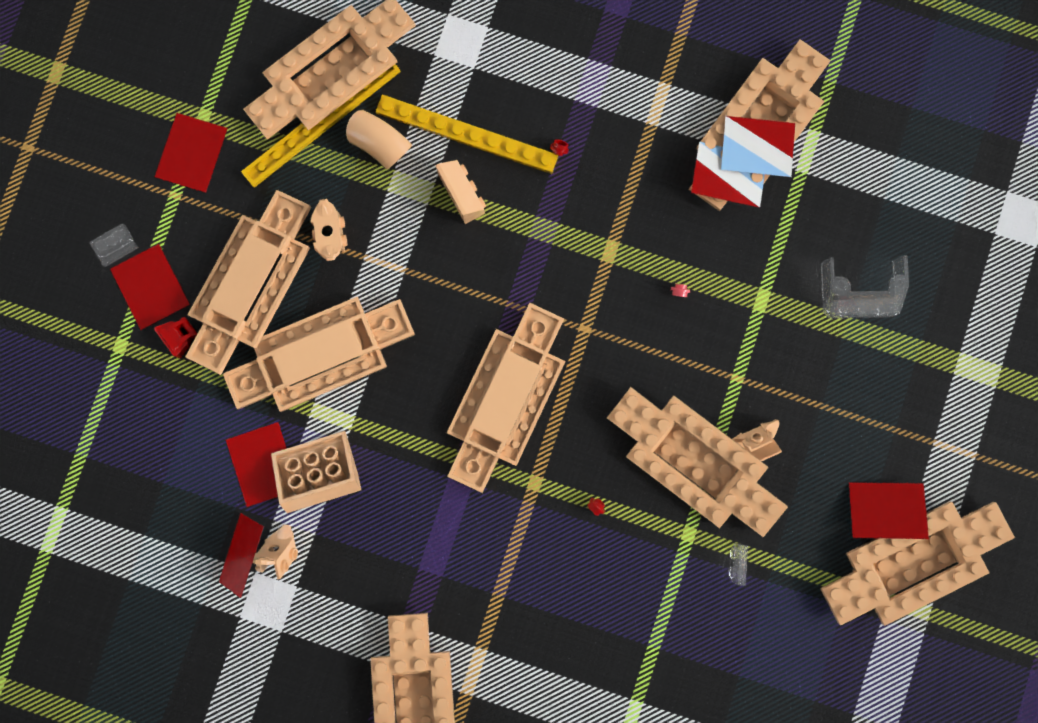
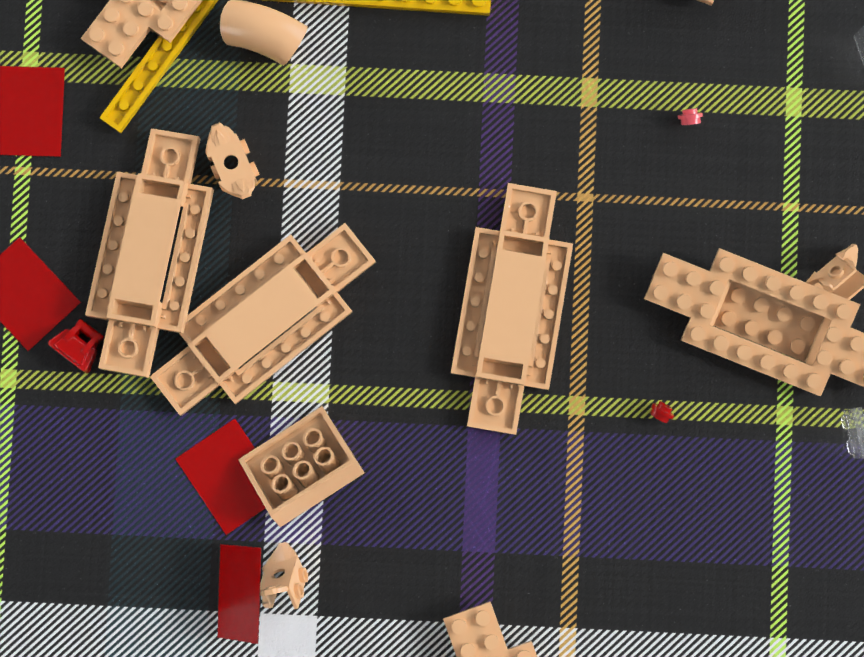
camera: 20 degrees left, 0 degrees up
(461, 190) = (383, 66): light nougat slope -> none

